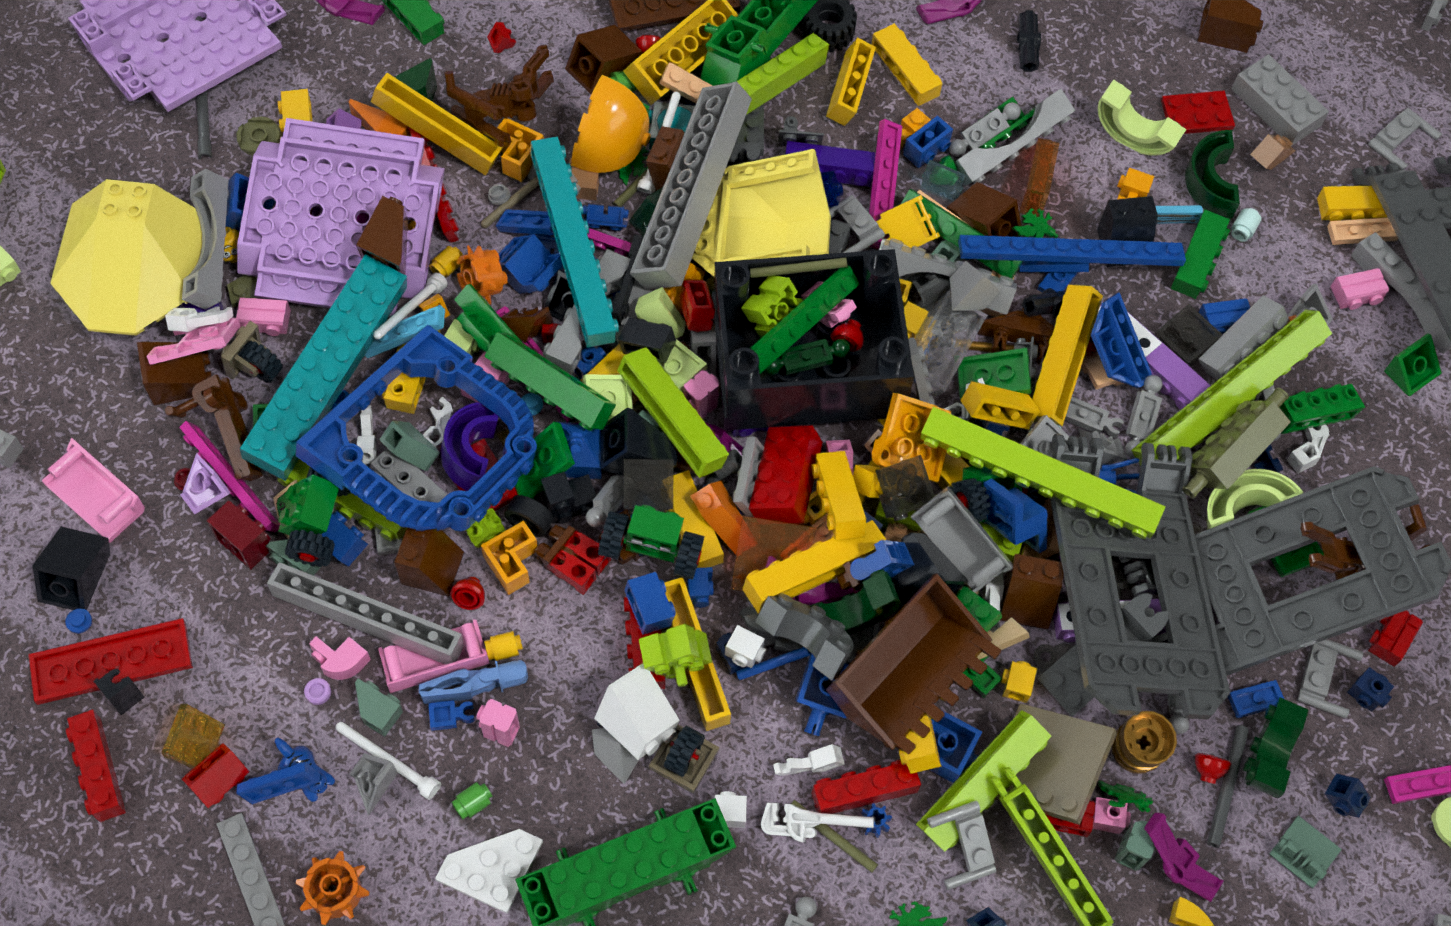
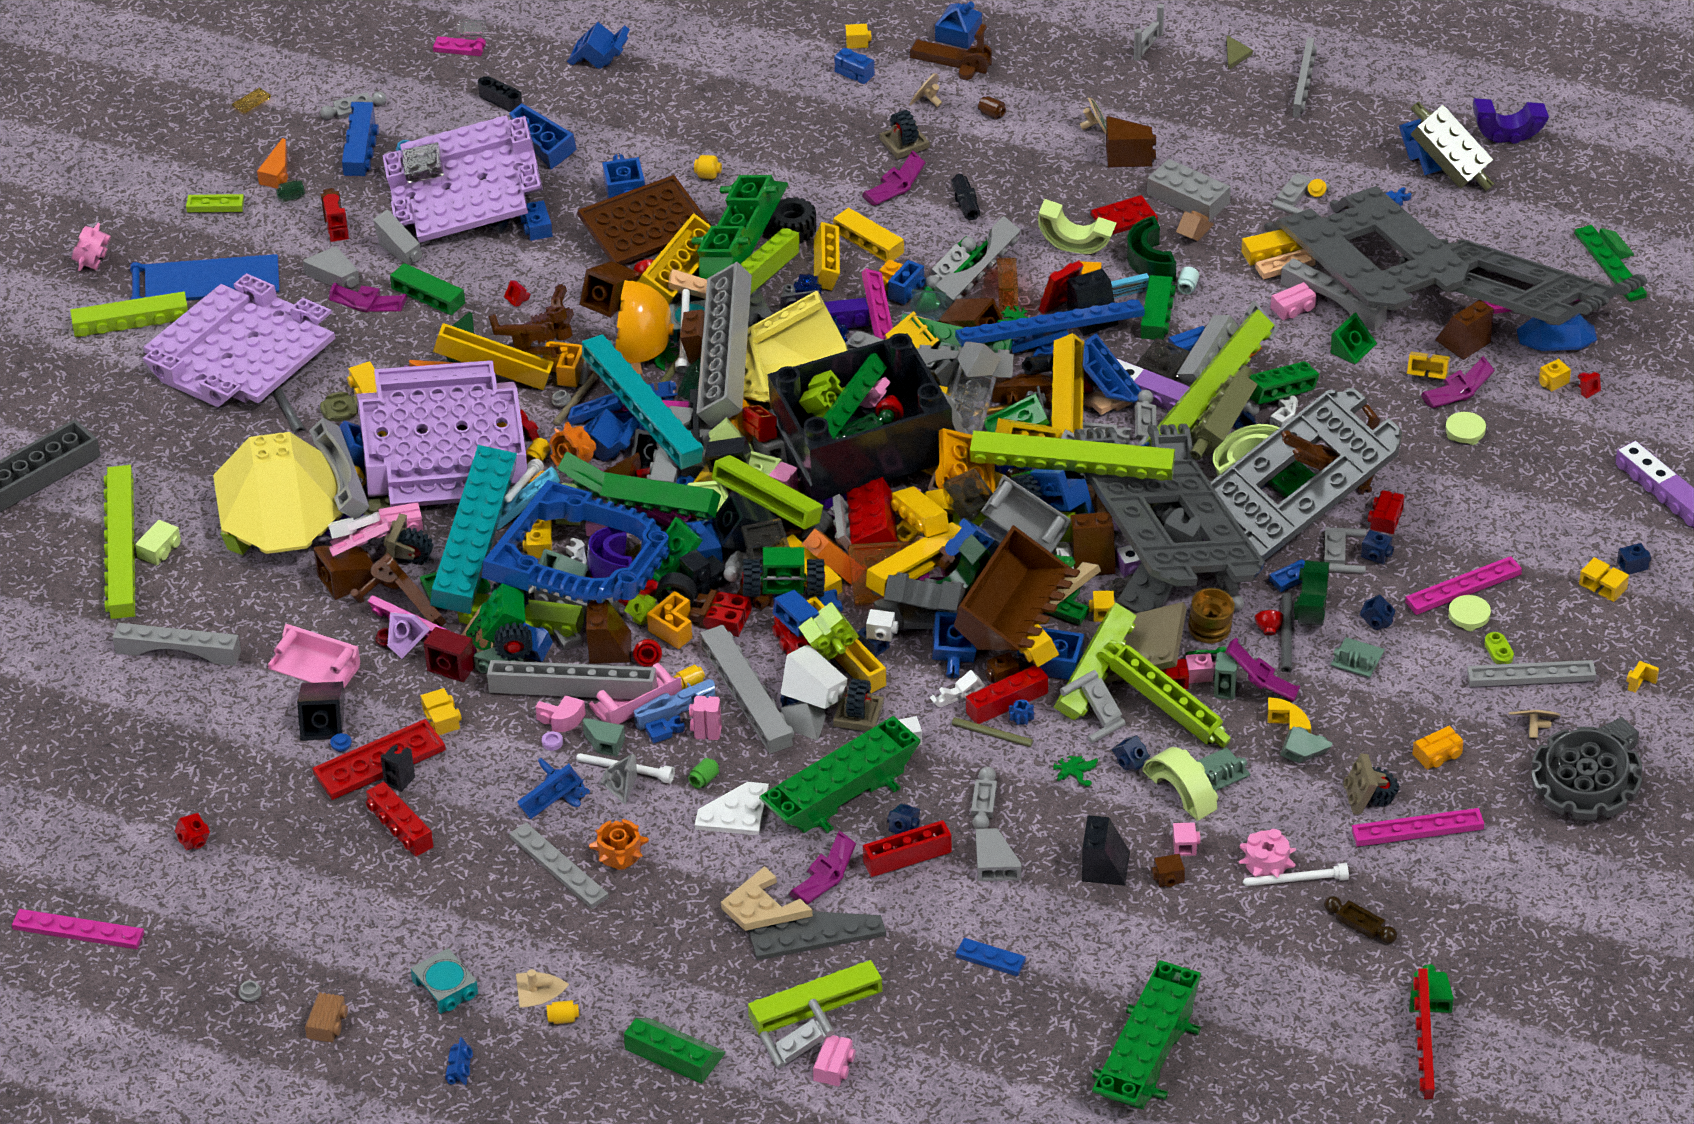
camera: 10 degrees left, 20 degrees down
(192, 736) = (468, 783): clear yellow plate -> none
(205, 616) = (440, 709): none -> yellow piece
(215, 775) = (497, 802): red brick -> none
(386, 235) = (491, 425): reddish brown slope -> none
(563, 685) = (747, 689): none -> light grey brick
(773, 663) = (906, 637): blue bar -> none
(798, 267) = (836, 363): olive bar -> none
(801, 821) = (964, 725): white piece -> none
(816, 119) = (807, 283): none -> clear blue brick
(869, 748) = (1001, 667): none -> reddish brown brick
(1097, 201) = (1056, 288): none -> red plate
(1425, 135) = (1317, 188): none -> yellow plate

